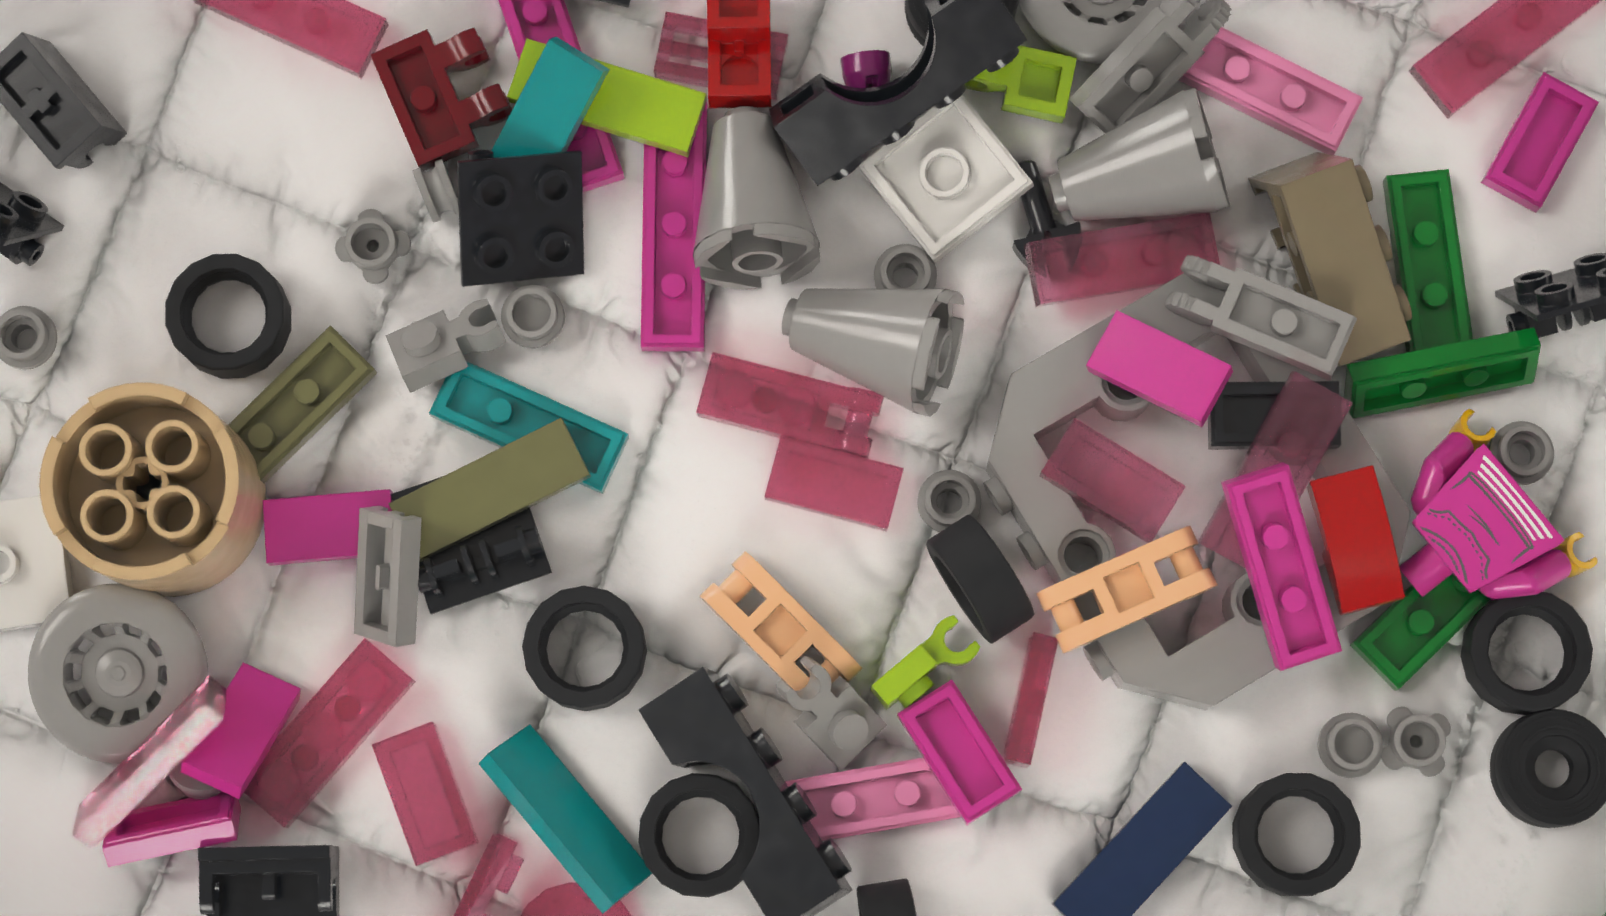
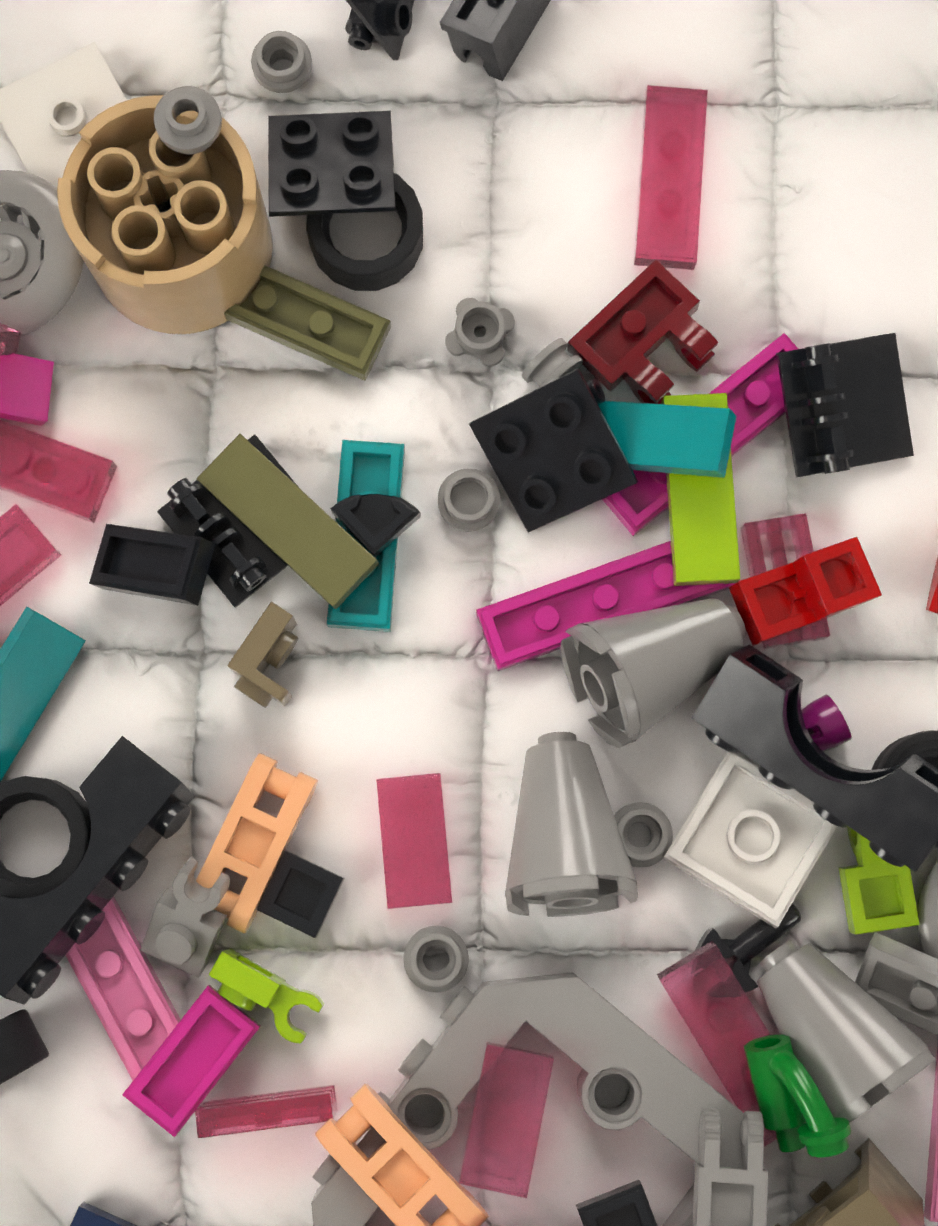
camera: 65 degrees right, 0 degrees up
(104, 435) = (190, 137): none -> light grey plate
(155, 321) = (330, 163): none -> black hinge
(316, 526) = (204, 390): dark pink tile -> none
(387, 576) = (171, 457): light grey tile -> none
(437, 346) = (409, 422): light grey plate -> none
(482, 631) = (152, 564): none -> black tile
(519, 407) = (375, 519): none -> black tile
(544, 621) = (123, 653): black tyre -> none
(601, 550) = (266, 644): none -> dark tan bracket
(786, 404) = (472, 768): clear pink plate -> none
(845, 604) = (300, 894): none -> black tile
(980, 578) = (364, 1021): black tyre -> none
(1159, 368) = (635, 1128): dark pink tile -> none
(1185, 224) = (791, 1098): none -> green plant

